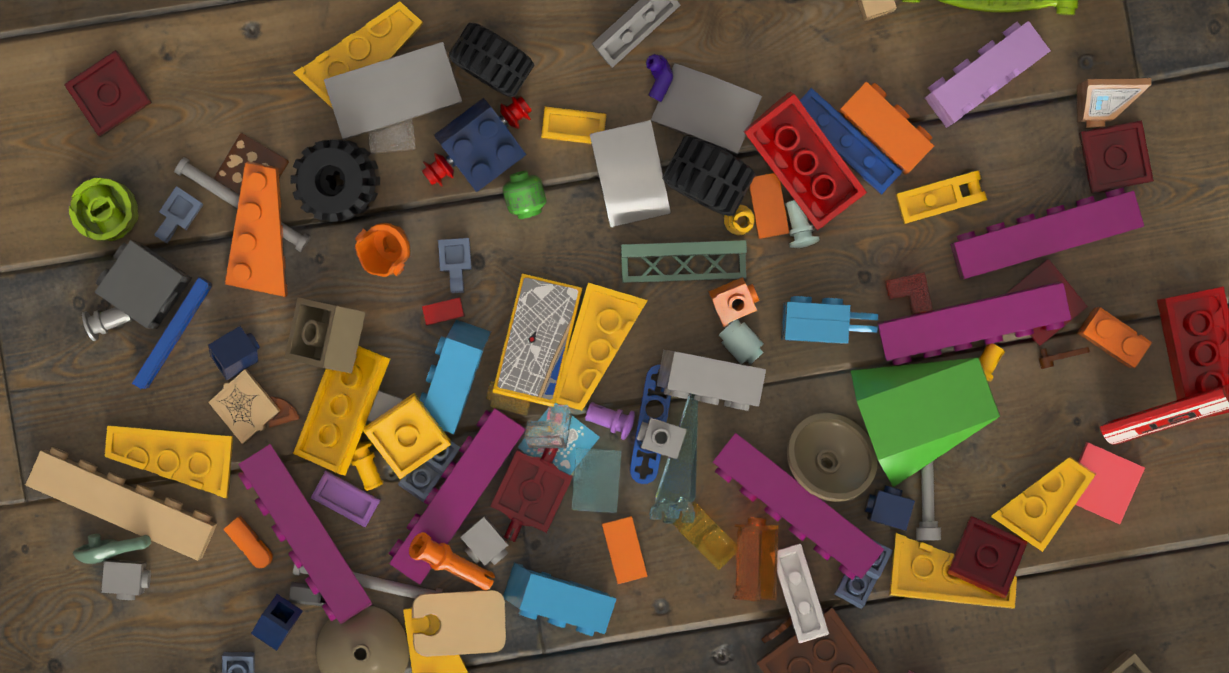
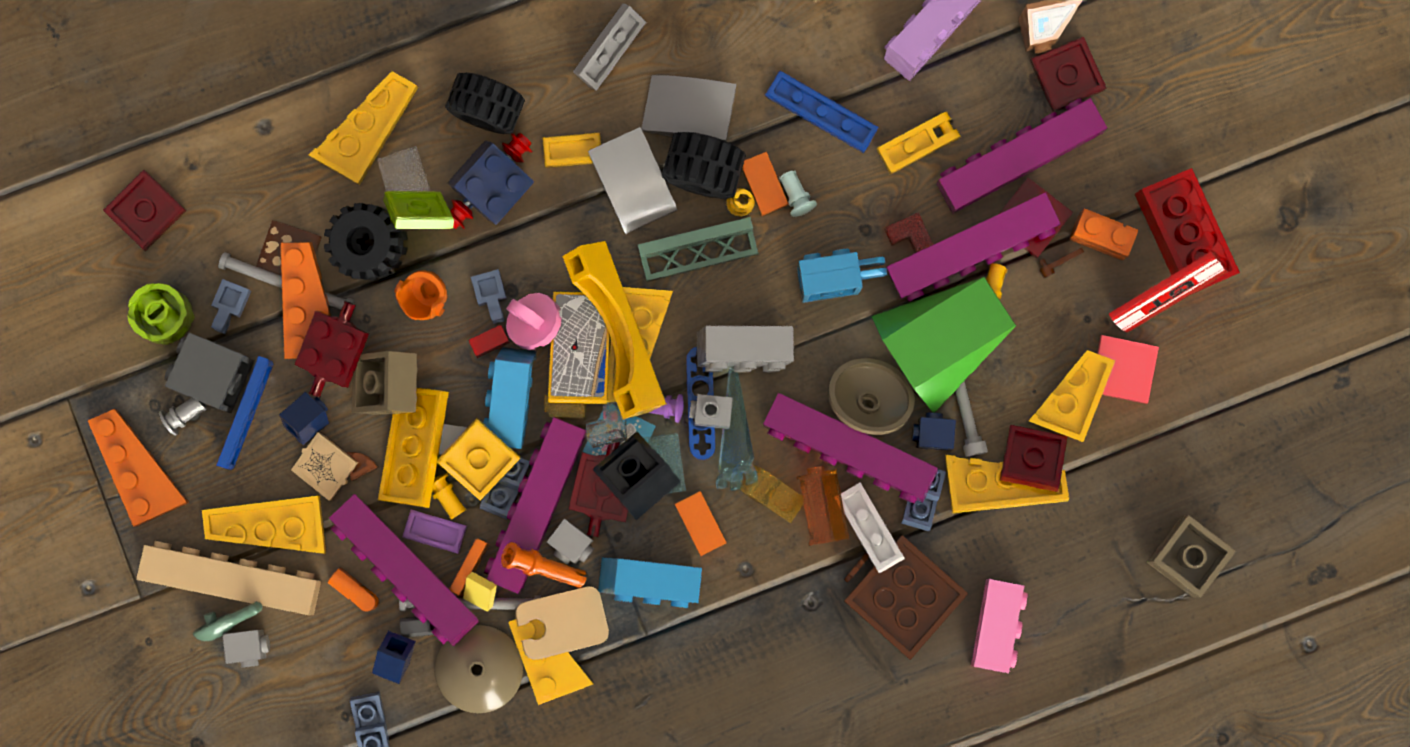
camera: 10 degrees left, 5 degrees down
(45, 370) = (136, 474): none -> orange wing
(277, 287) = (331, 349): none -> dark red plate
(374, 544) = (469, 565): none -> orange tile
(380, 573) = (479, 591): none -> light yellow tile
(393, 90) = (402, 151): light grey tile -> none
(397, 160) = (418, 210): none -> lime tile
(494, 301) = (533, 321): none -> bright pink tile
(524, 194) = (540, 220): bright green head -> none
(568, 488) = (636, 475): none -> black slope
(570, 269) = (596, 276): none -> yellow arch
(662, 74) = (643, 88): dark purple arm -> none
(724, 296) = (741, 274): orange brick -> none
(741, 342) = (766, 310): light aqua brick -> none
(804, 160) = (787, 134): red slope -> none
(887, 127) = (855, 89): orange brick -> none

